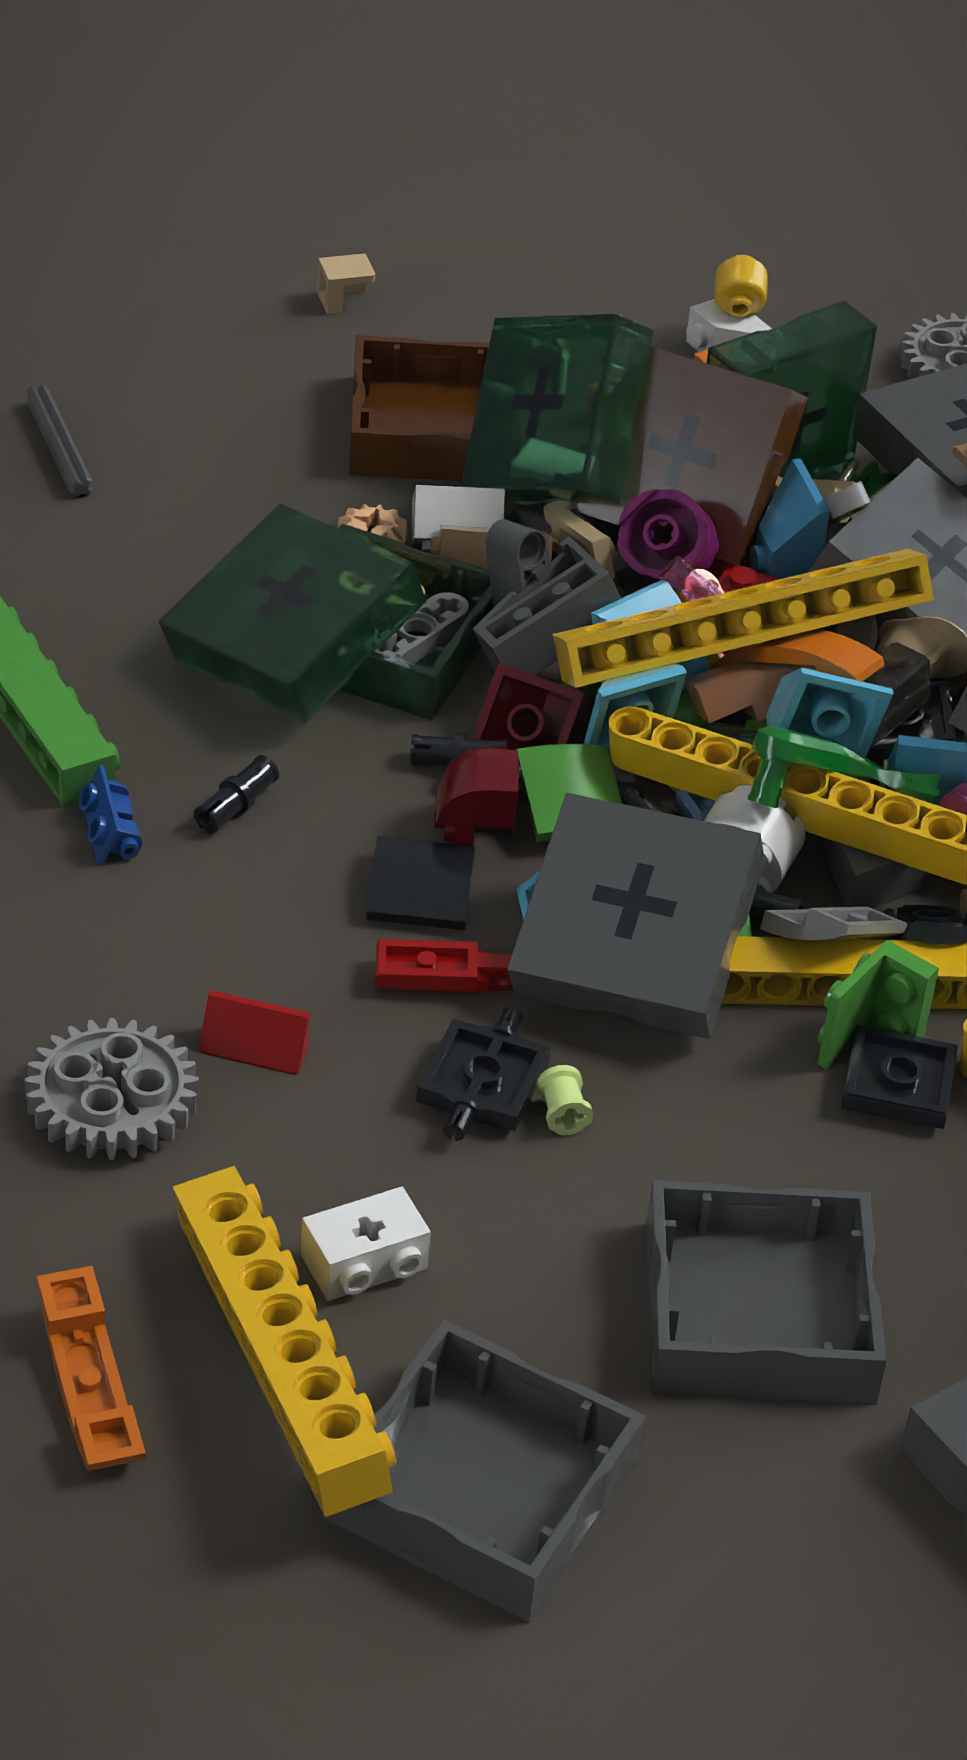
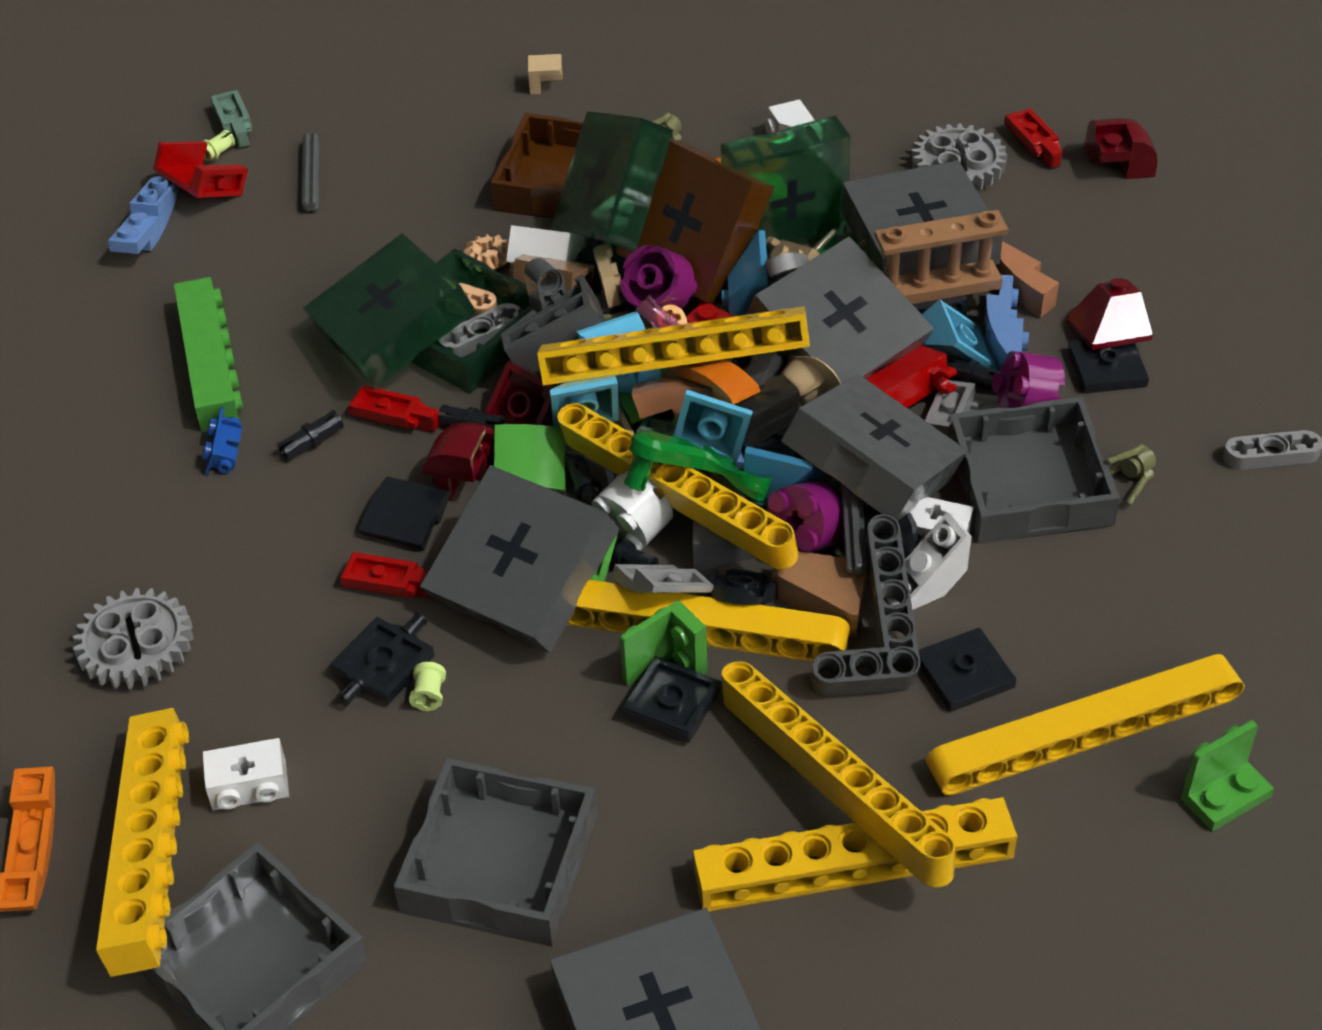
camera: 20 degrees right, 5 degrees up
(255, 1032) = (244, 610): red slope -> none
(341, 748) = (393, 409): none -> red hinge
(741, 284) = (803, 93): yellow head -> none

